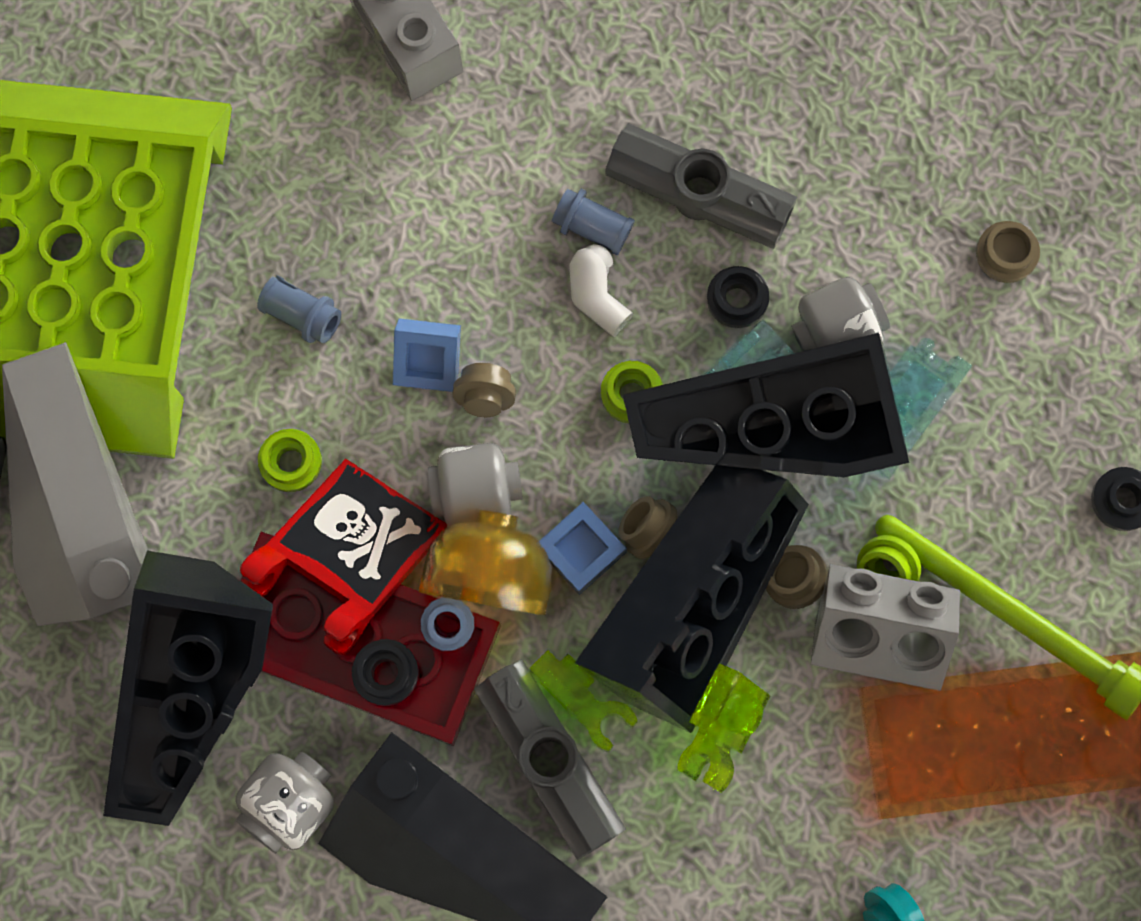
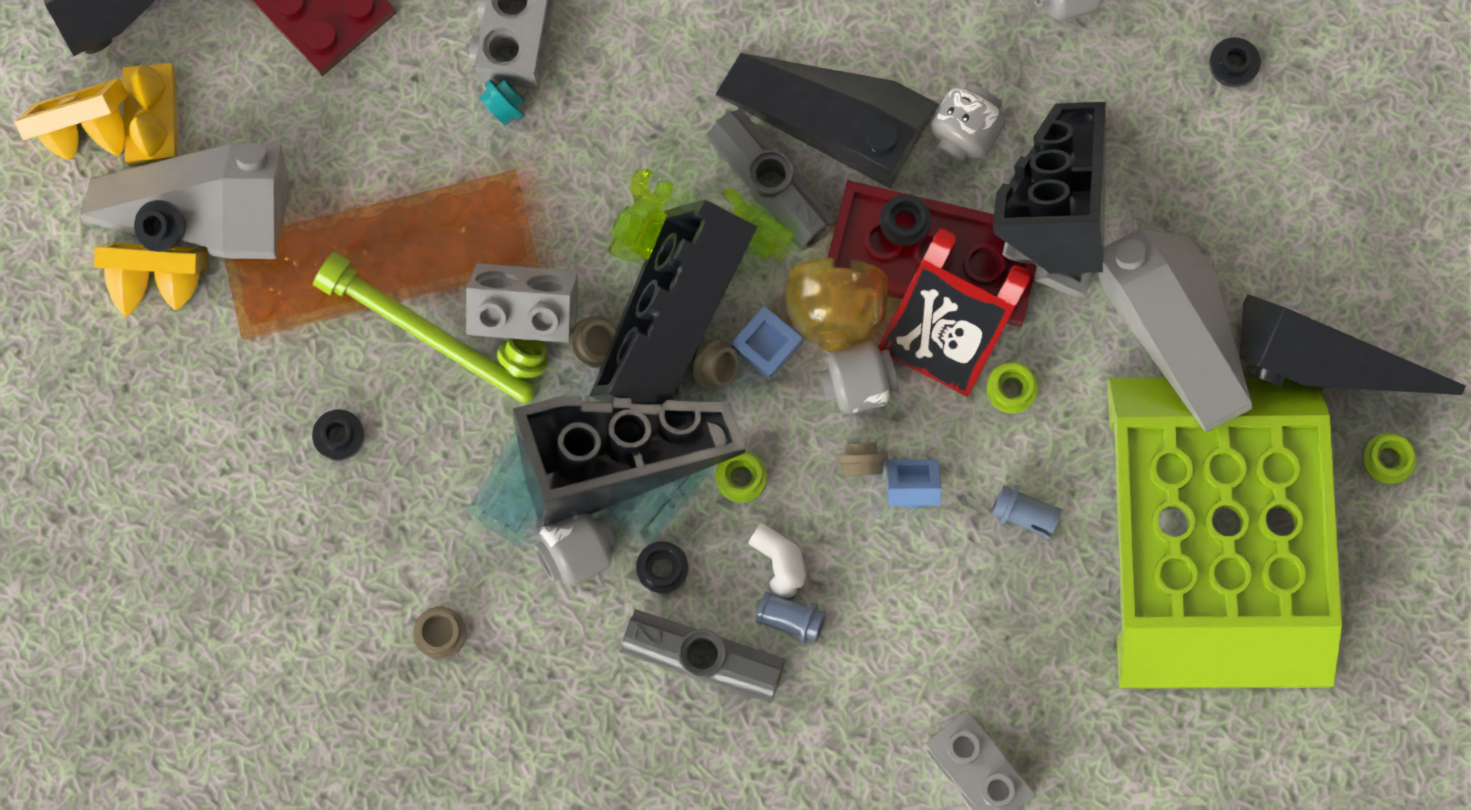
camera: 175 degrees right, 0 degrees up
(447, 640) = (860, 245): sand blue pin -> none

